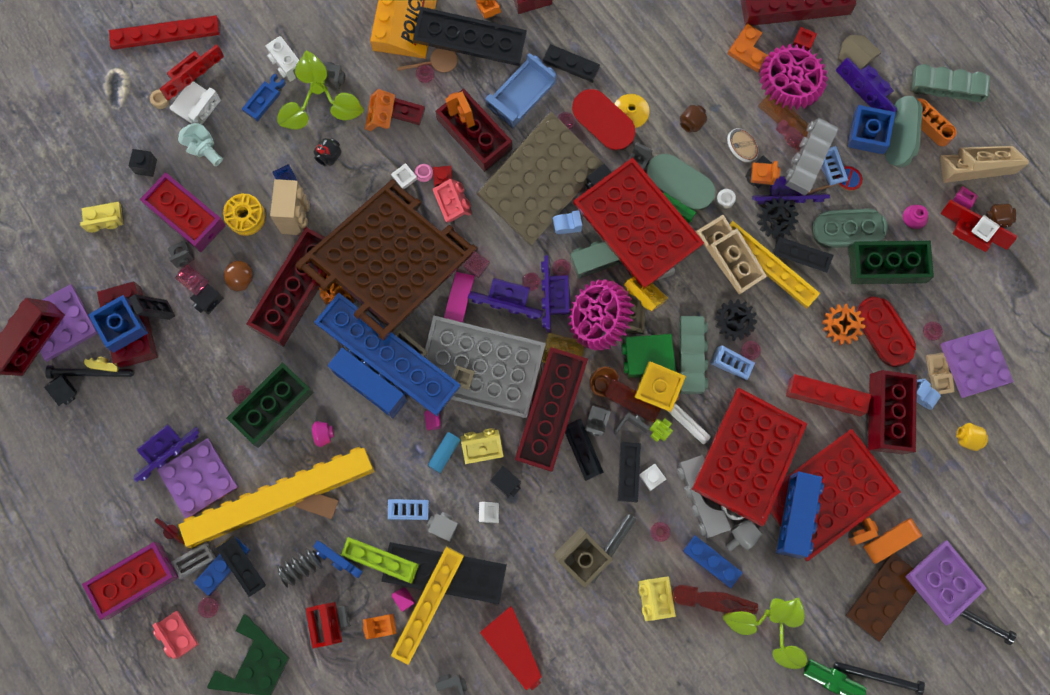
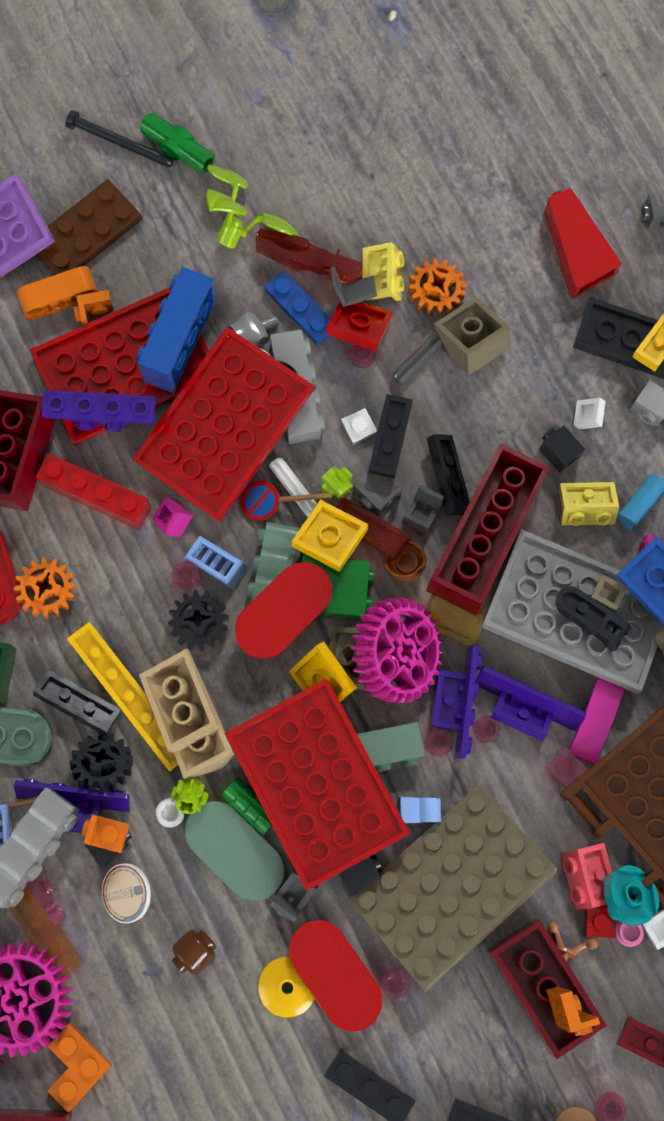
camera: 175 degrees left, 0 degrees up
(435, 185) = (618, 901): none -> teal plate
(446, 162) = (571, 953): none -> nougat piece
(473, 359) = (592, 616): none -> black plate
(522, 91) = (458, 1049): medium blue panel -> none
(622, 587) = (440, 276): none -> orange gear
(667, 552) = (360, 324): none -> red plate
(676, 576) = (355, 291): none -> dark grey bracket
(681, 330) = (283, 610): none -> red tile
(709, 409) = (262, 500): none -> piece
(716, 206) = (189, 795): none -> lime gear
(769, 388) = (172, 517): none -> dark pink slope
(841, 446) = (98, 409): none -> dark purple bracket

